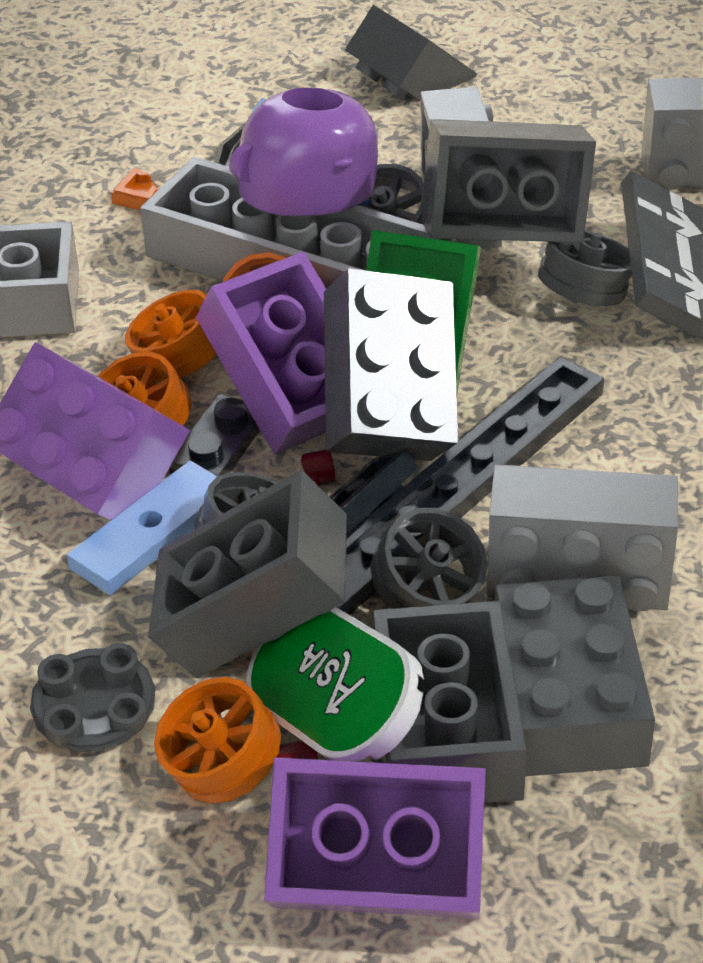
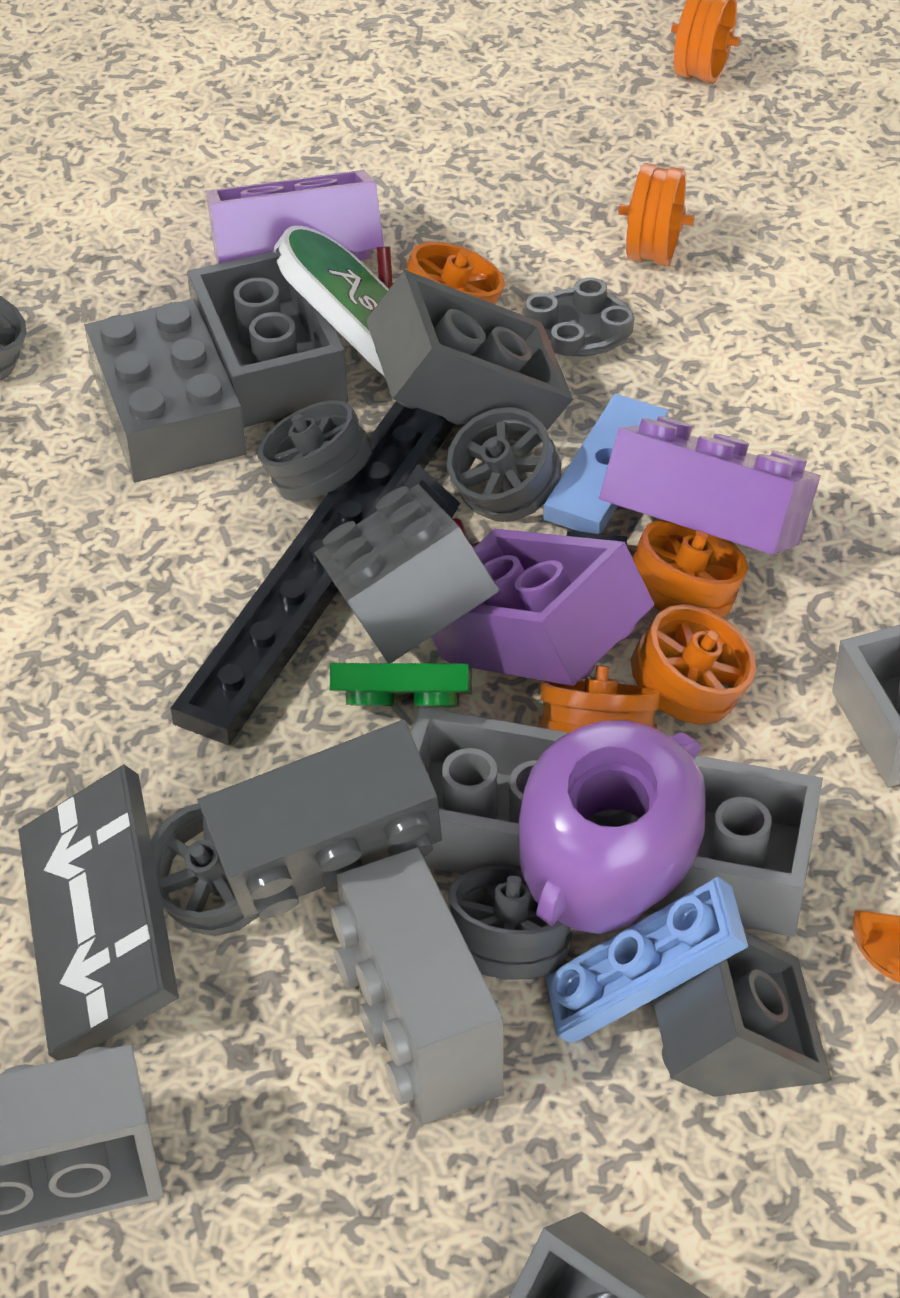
camera: 165 degrees right, 5 degrees up
(584, 526) = (166, 476): light grey brick -> none

